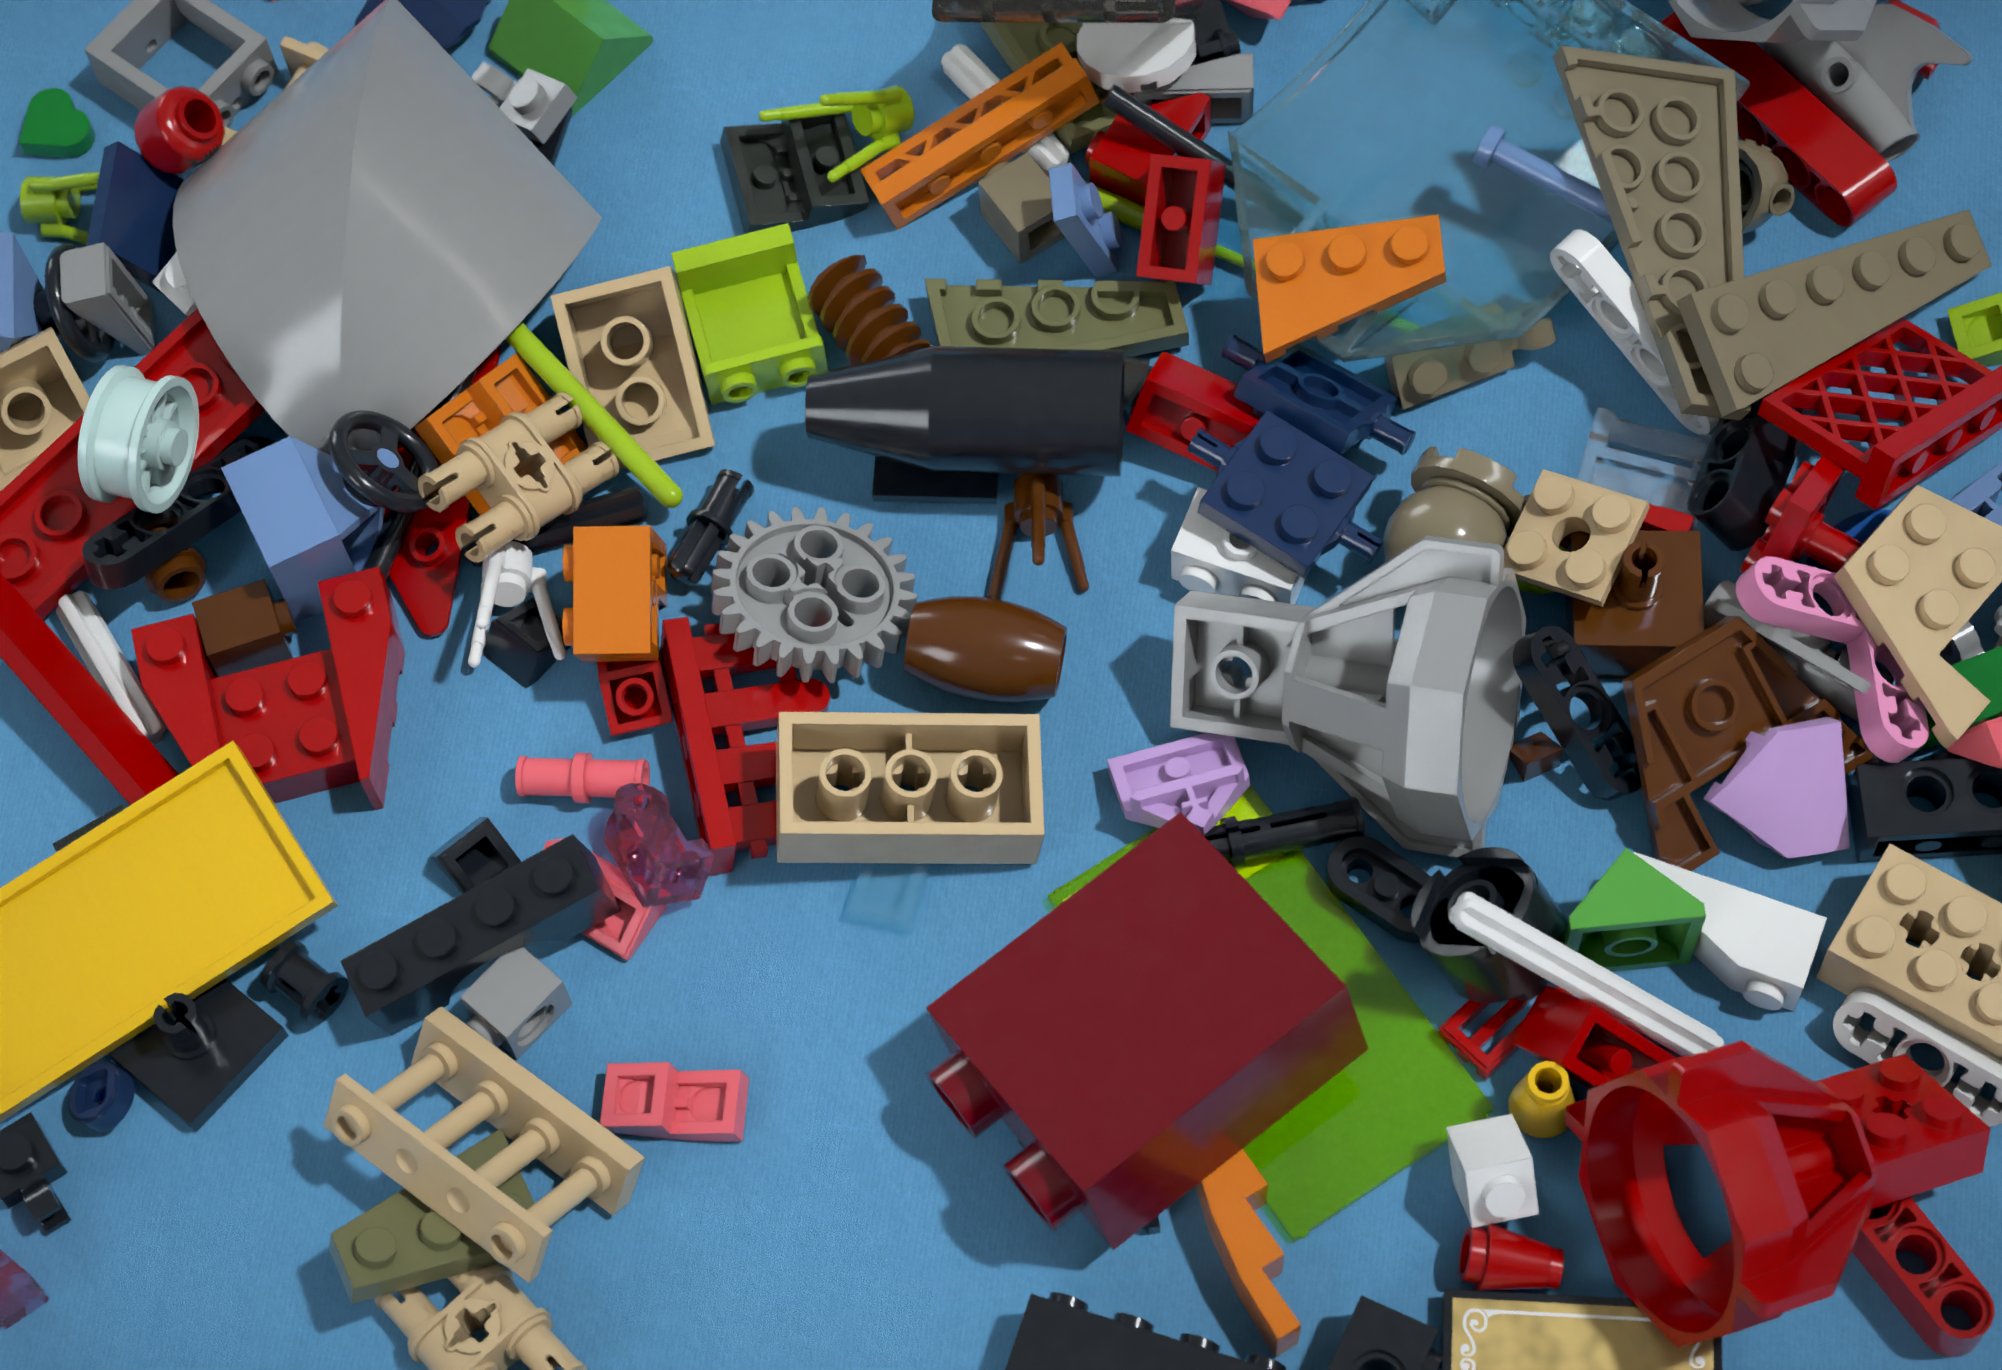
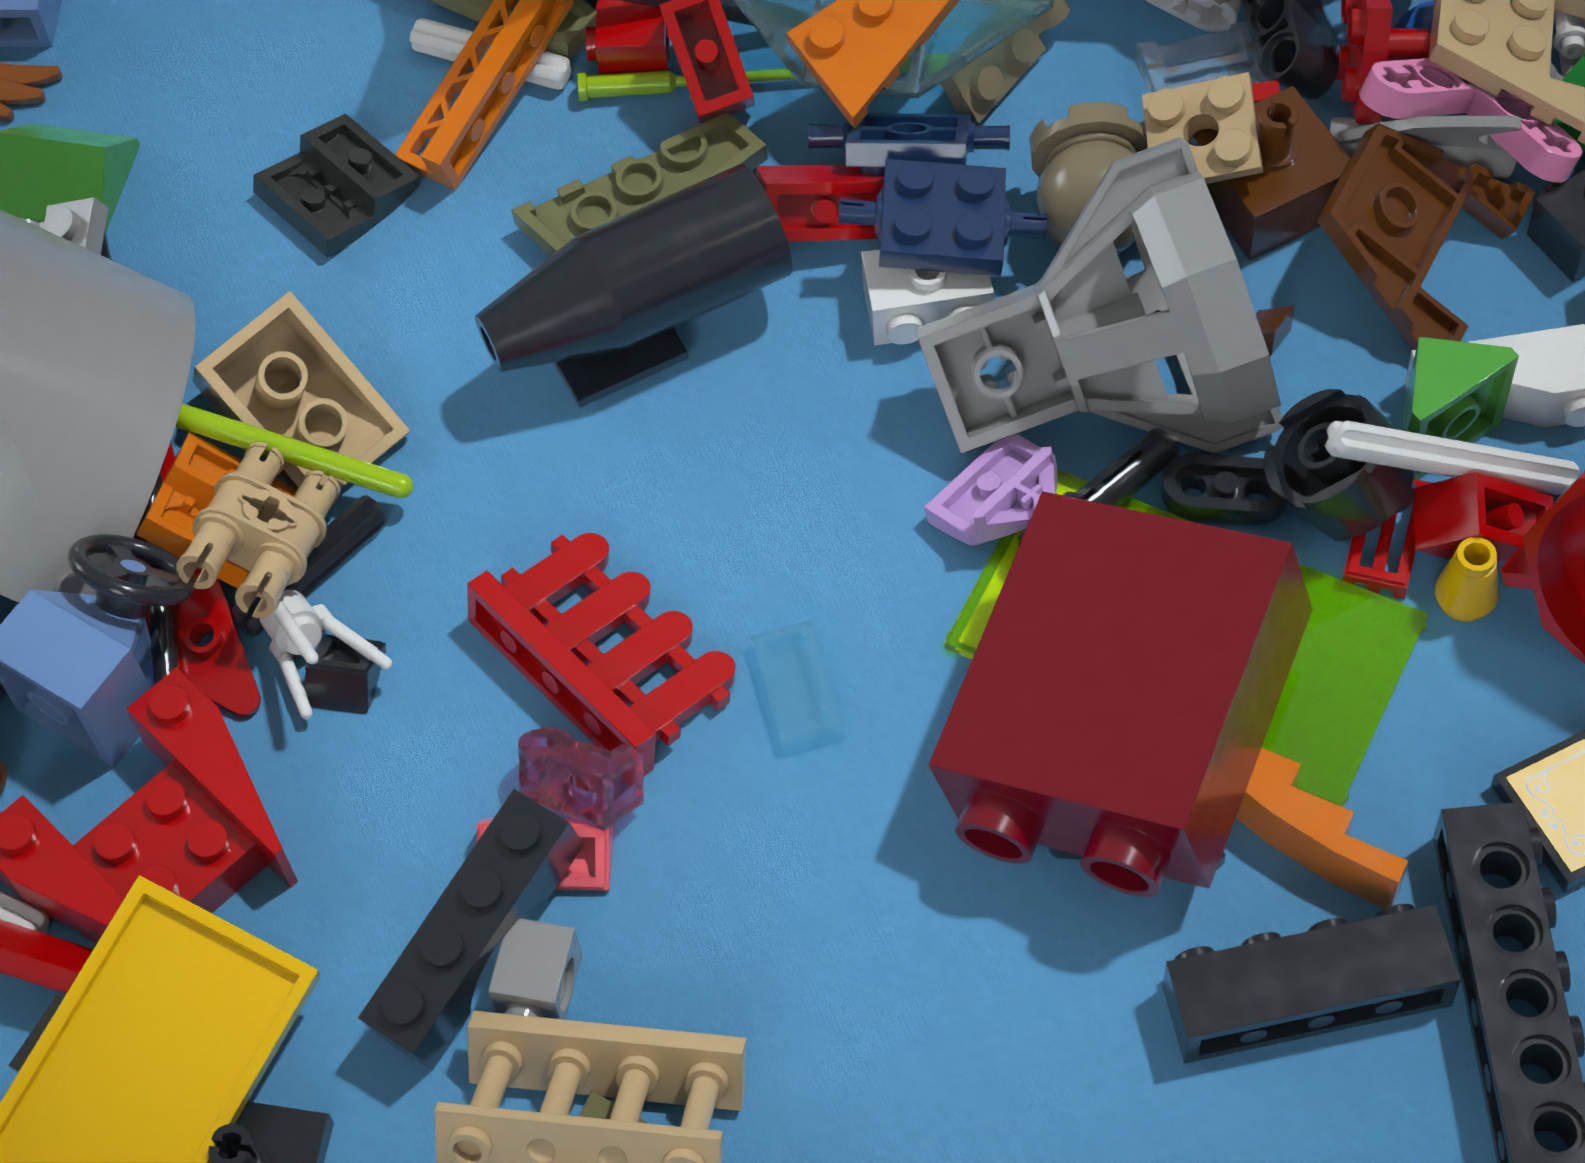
camera: 30 degrees left, 5 degrees down
(244, 628) = (75, 787): reddish brown brick -> none
(304, 982) = (325, 1064): black bush -> none
(475, 855) = (414, 875): black slope -> none
(578, 776) = (467, 758): coral pin -> none
(616, 593) = (410, 579): orange brick -> none
(634, 695) = (453, 647): red slope -> none
(674, 1104) = (734, 987): coral slope -> none
(709, 527) = (450, 496): black axle -> none
(749, 314) = (378, 309): lime panel -> none
(813, 594) = (583, 501): light grey gear -> none
(862, 312) = (474, 261): reddish brown piece -> none
(874, 113) = (381, 102): lime plant -> none
(920, 750) = (776, 609): tan brick -> none
(985, 649) = (765, 468): reddish brown piece -> none
(1019, 207) = (558, 116): dark tan brick -> none
(1038, 512) = (733, 344): reddish brown plant -> none
(1084, 220) = (626, 93): medium blue plate -> none
(1492, 1170) = (1472, 656): white brick -> none
(1507, 1261) = (1527, 724): red cone -> none
(1554, 705) = (1319, 292): black beam -> none
(1790, 789) = (1495, 244): lavender slope -> none

